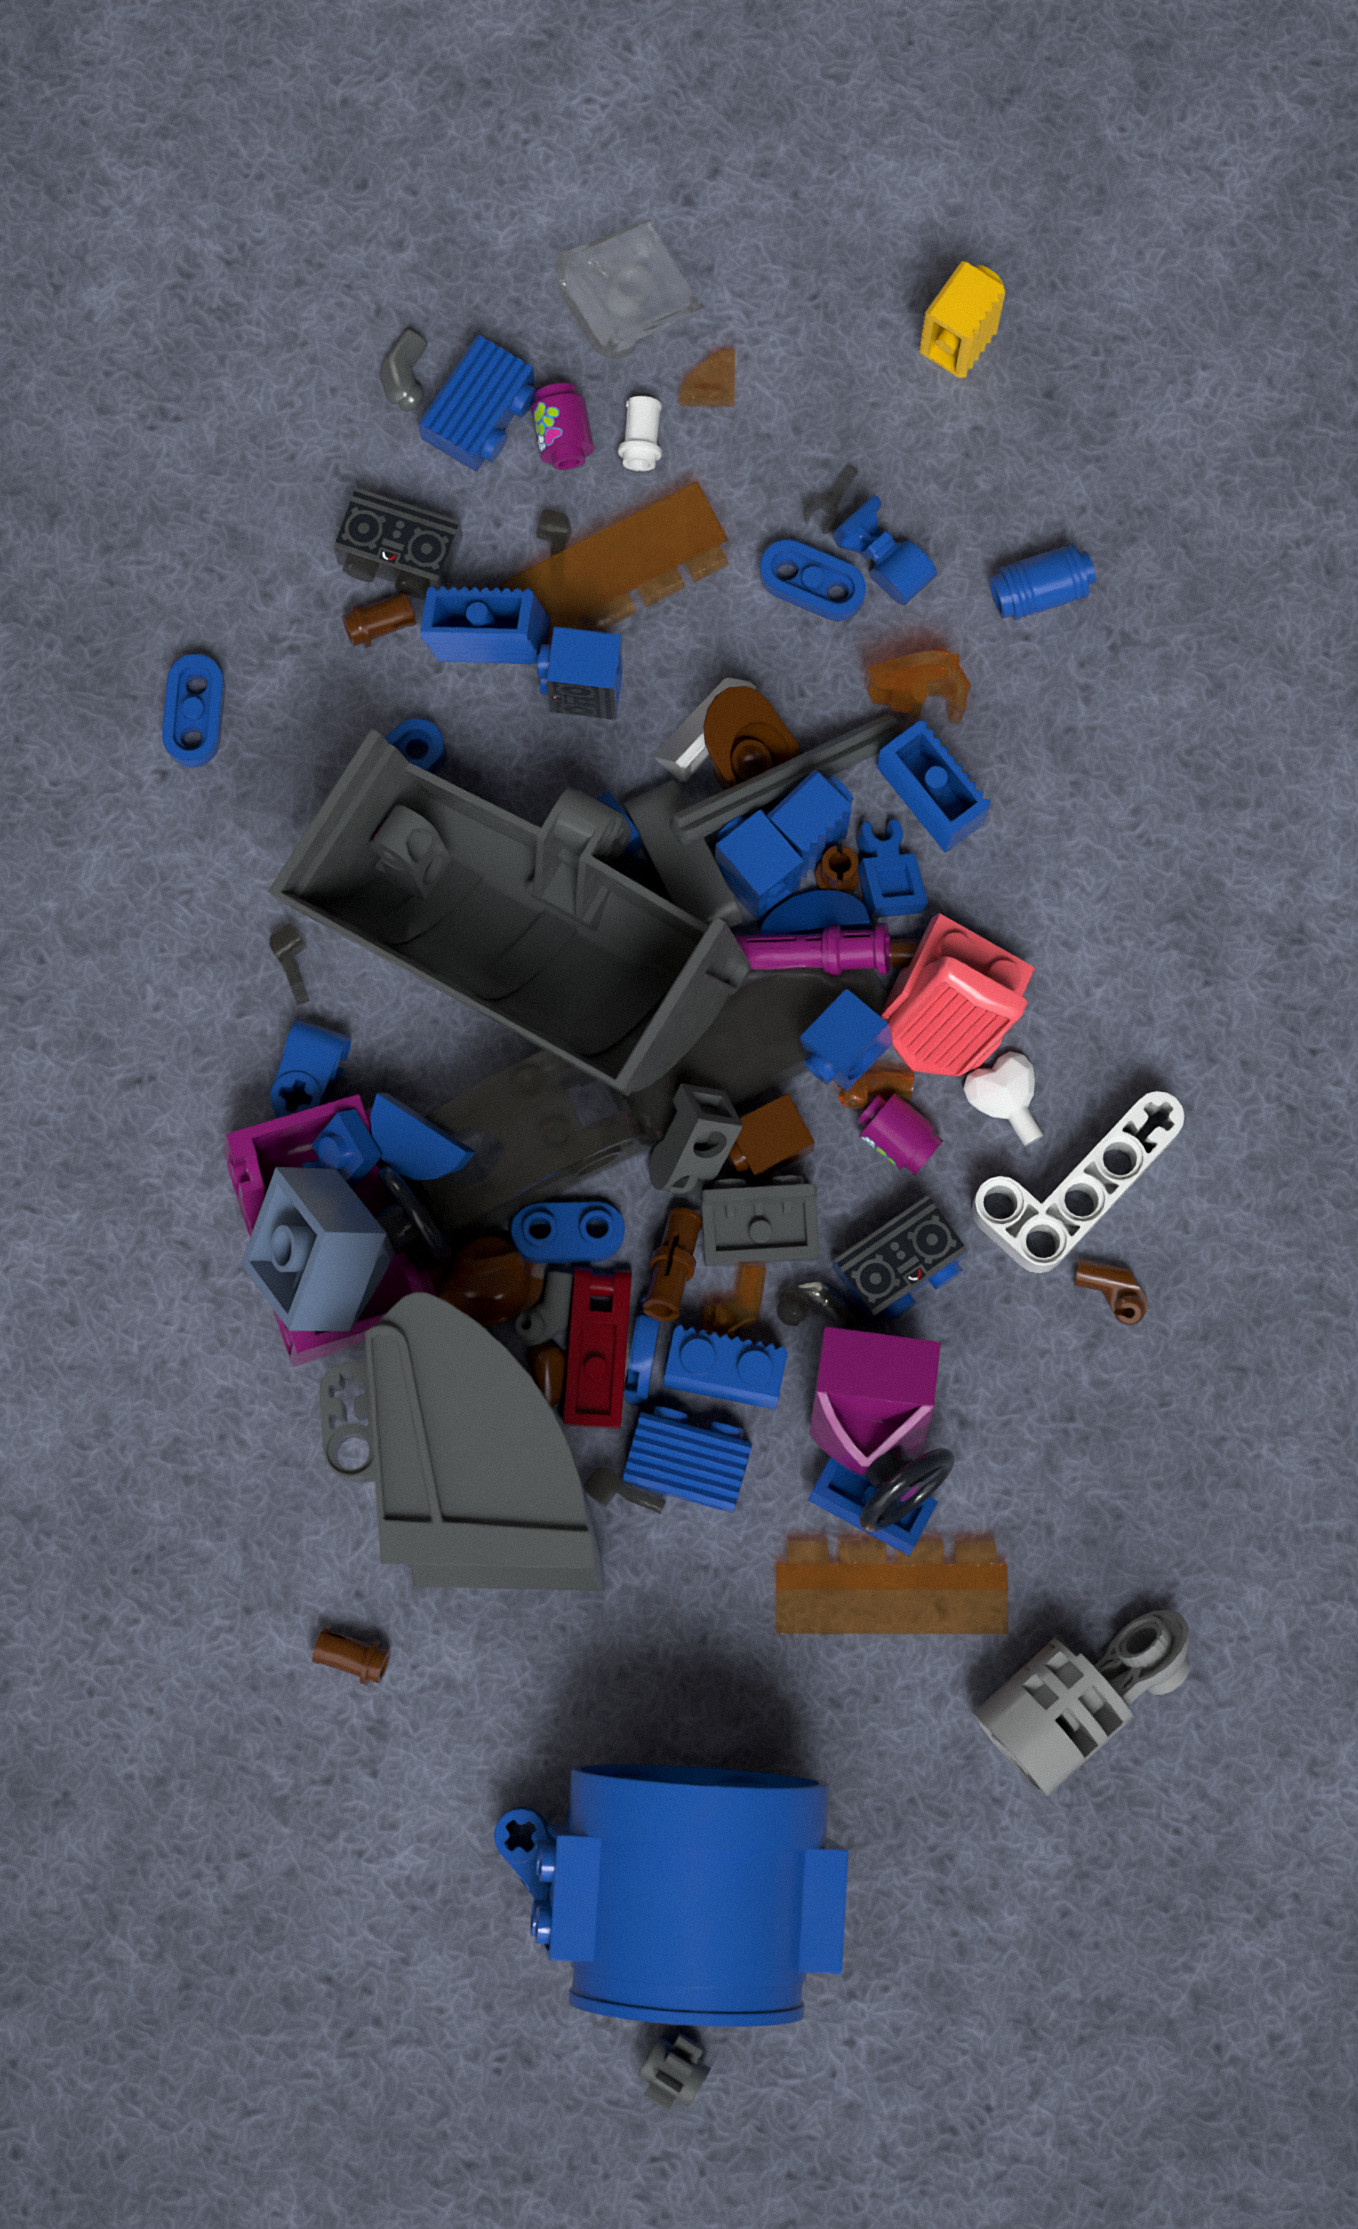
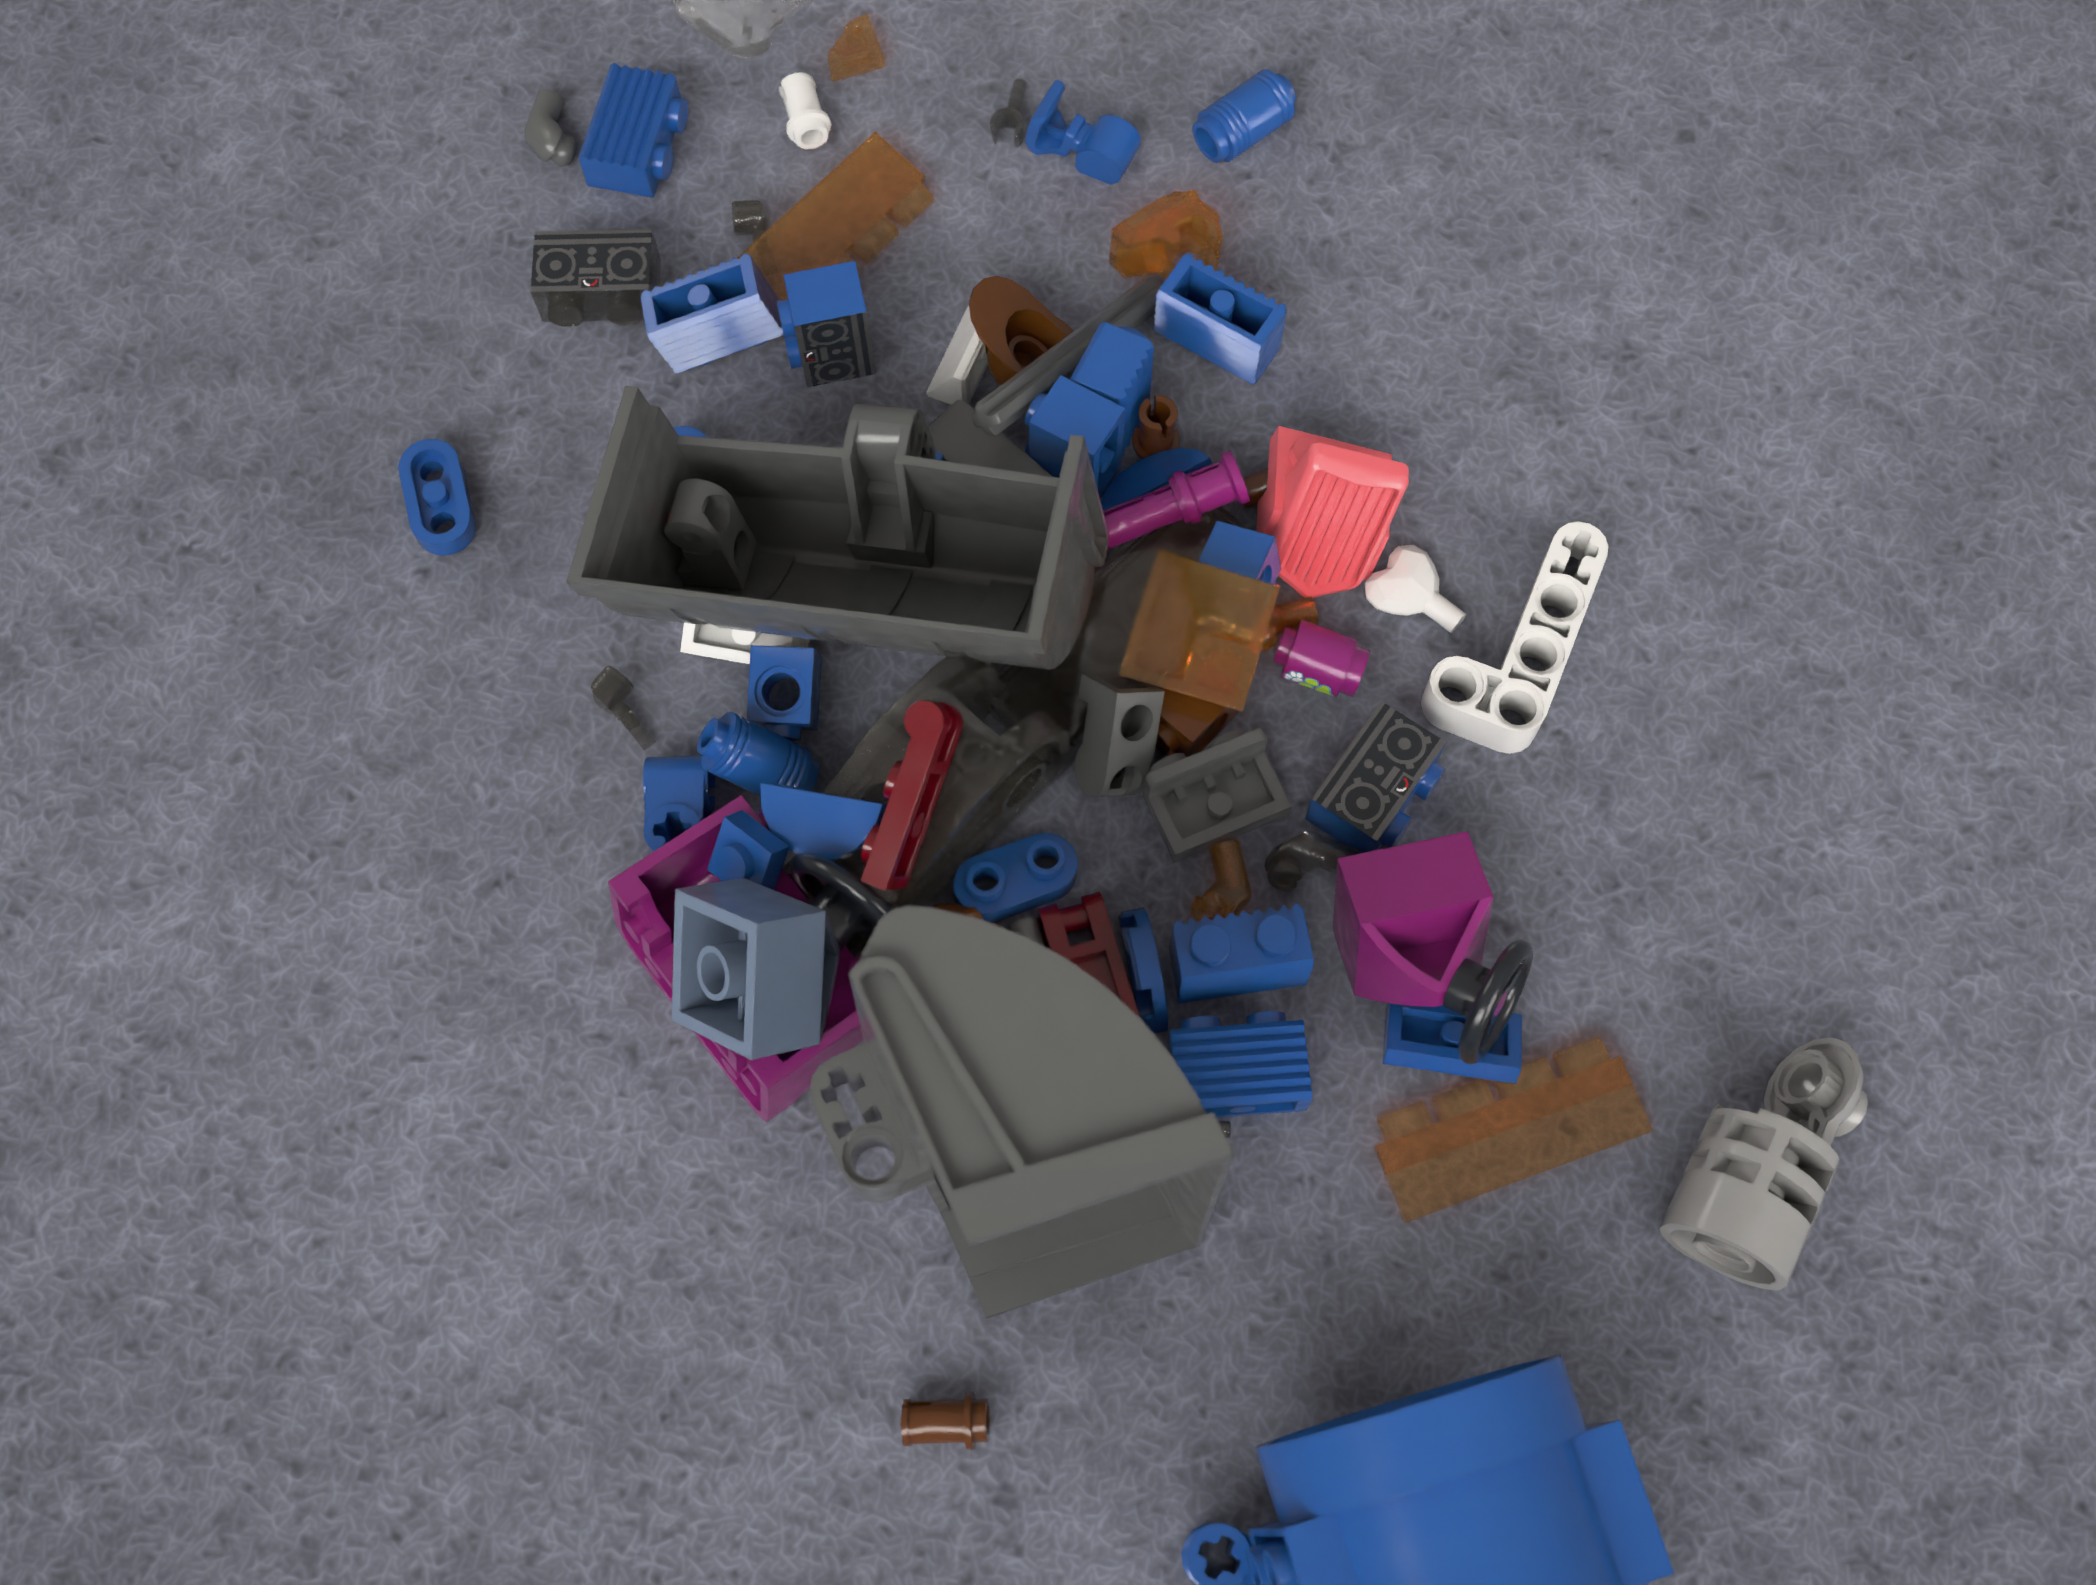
camera: 20 degrees left, 10 degrees down
(378, 619) = (600, 353): reddish brown pin -> none
(387, 1057) = (754, 755): none -> blue head
(413, 1024) = (776, 664): none -> blue brick
(493, 1154) = (912, 794): none -> dark red plate
(562, 426) = (723, 125): magenta brick -> none
(672, 1264) = (1148, 891): reddish brown pin -> none
(791, 1083) = (1200, 630): none -> clear orange plate
(815, 577) = (1022, 181): blue plate -> none
(888, 879) = (1207, 421): blue plate -> none
(1118, 1287) = (1606, 734): reddish brown arm -> none

